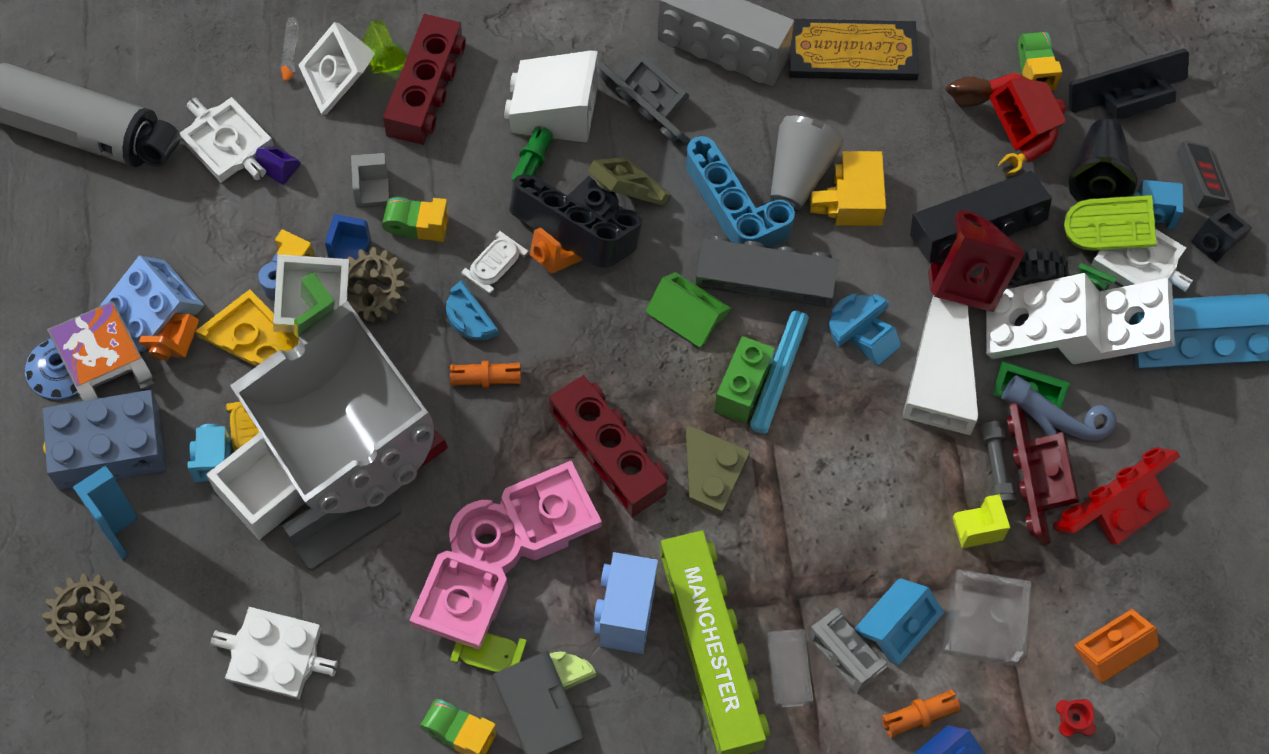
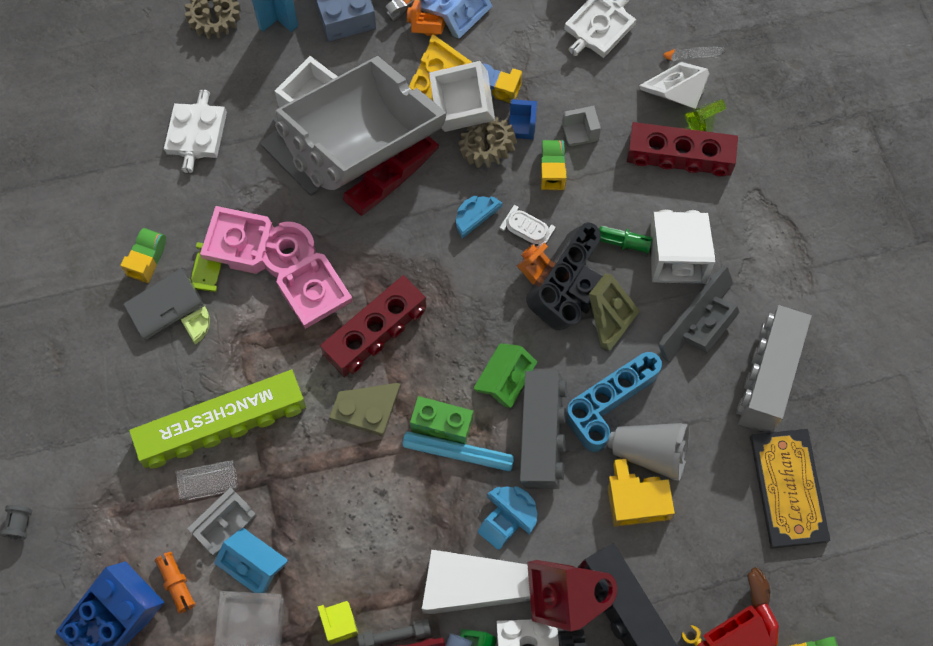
camera: 85 degrees right, 5 degrees up
(208, 450) = (339, 59): medium azure brick -> none
(277, 163) = (588, 62): dark purple slope -> none
(317, 299) = (438, 88): bright green panel -> none
(485, 374) = (426, 233): orange pin -> none
(628, 601) = (238, 350): light blue slope -> none

